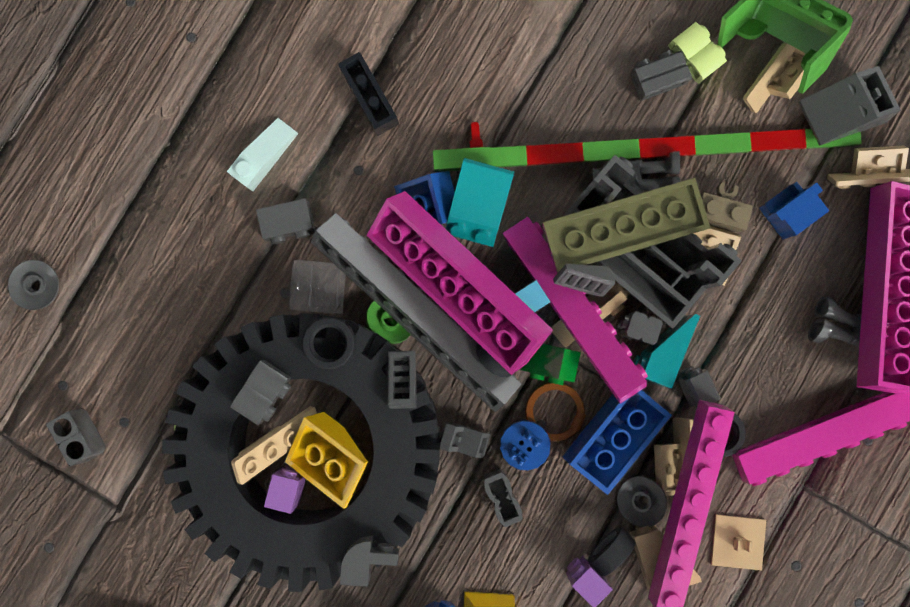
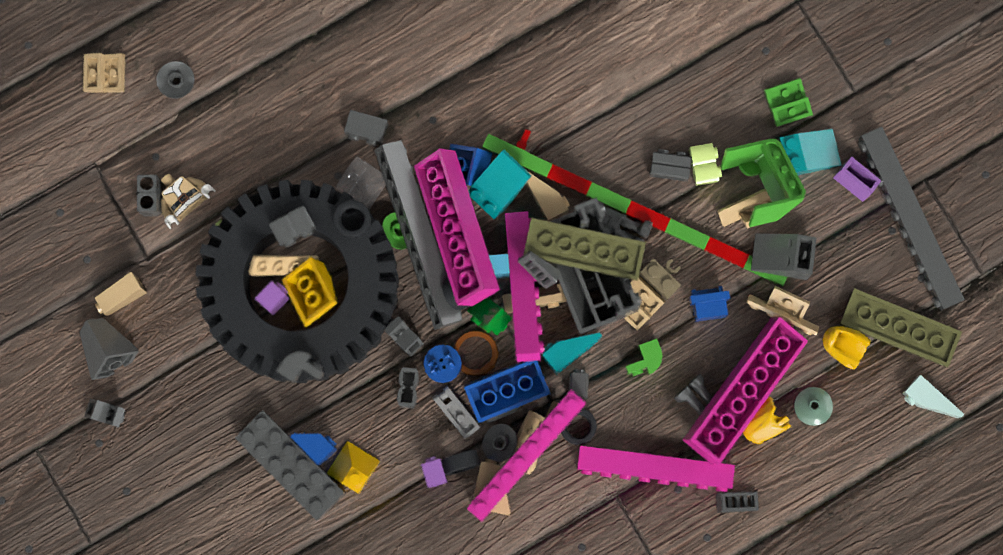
camera: 30 degrees right, 5 degrees down
(107, 570) = (120, 294): none -> tan slope
(116, 419) = (182, 197): none -> torso
(262, 154) = (374, 75): light aqua slope -> none
(368, 93) = (466, 73): black brick -> none
(392, 379) = (382, 284): dark grey slope -> none
(542, 190) = (548, 199): none -> tan slope
(572, 493) = (456, 413): none -> light grey plate
(639, 328) = (560, 324): dark grey brick -> none
(738, 542) = (551, 509): tan piece -> none
(761, 310) = (651, 359): none -> bright green brick

